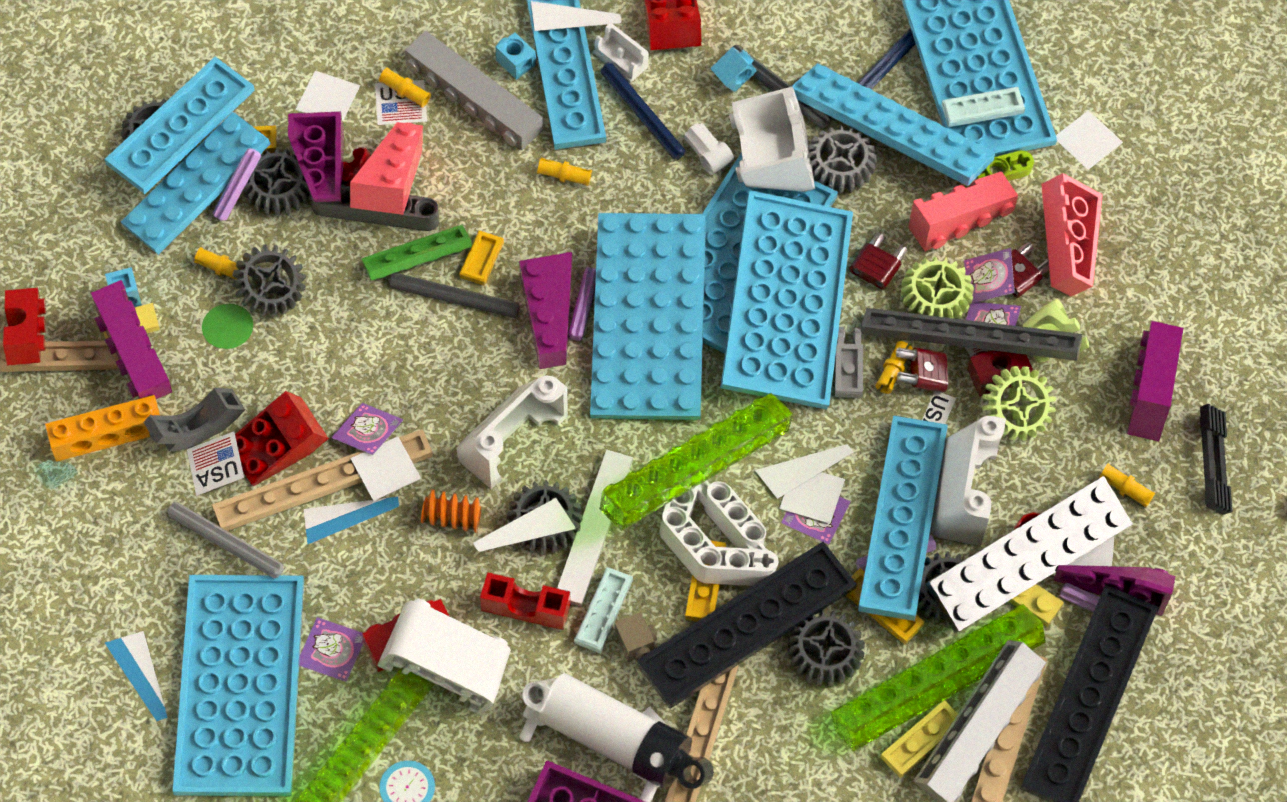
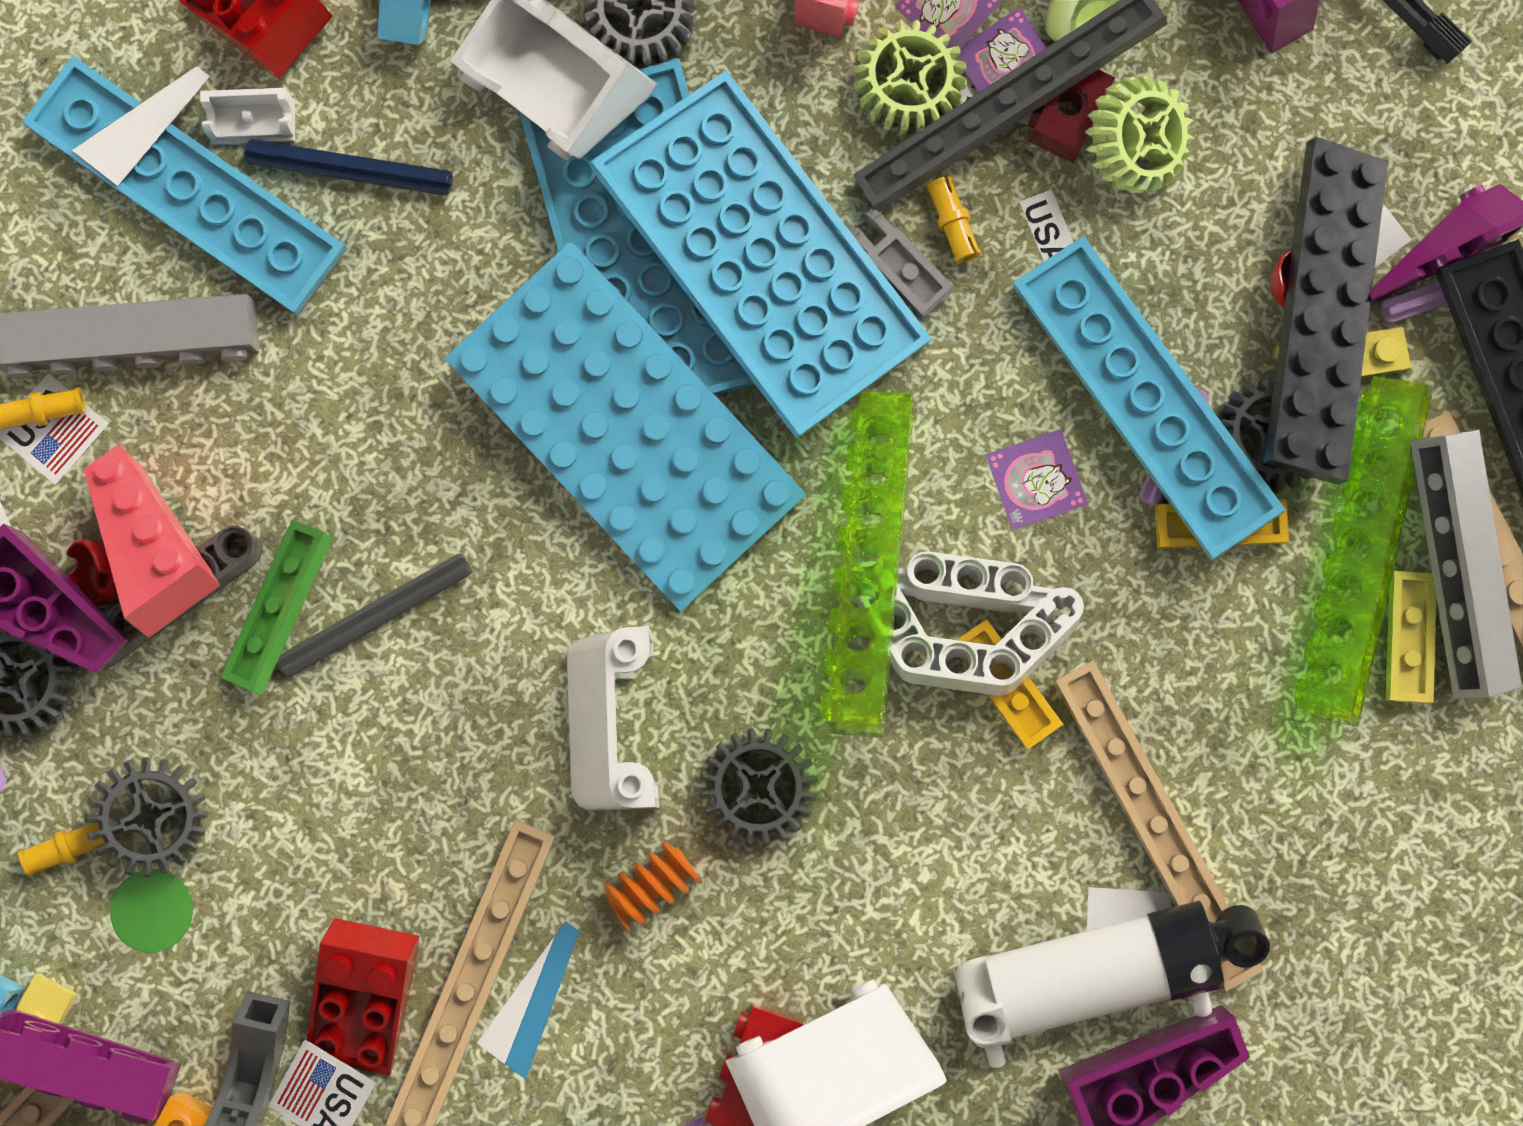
camera: 45 degrees left, 20 degrees up
(367, 428) = (450, 880): sticker -> none
(386, 469) = (524, 909): white sticker -> none
(481, 258) = (356, 537): yellow tile -> none
(507, 599) = (845, 912): red arch -> none
(515, 64) = (142, 250): medium azure brick -> none
(540, 522) = (767, 808): white sticker -> none
(547, 300) = (492, 520): magenta wedge -> none
(564, 171) = (340, 335): yellow pin -> none
(583, 305) = (532, 481): lavender axle -> none
(593, 531) = (831, 756): white tile -> none
(603, 610) = (932, 830): light aqua plate -> none
(635, 636) = (1002, 829): dark tan brick -> none
(711, 153) = (486, 145): white piece -> none
(746, 624) = (1112, 699): black plate -> none
(790, 474) = (967, 460): white sticker -> none
(815, 497) = (1012, 461): white sticker -> none
(851, 653) = (1243, 614): dark grey gear -> none
(876, 264) = (809, 108): dark red piece -> none
(927, 369) = (994, 187): dark red piece -> none
(958, 510) = (1168, 289): white windscreen -> none
(1127, 485) = (1336, 119): yellow pin -> none

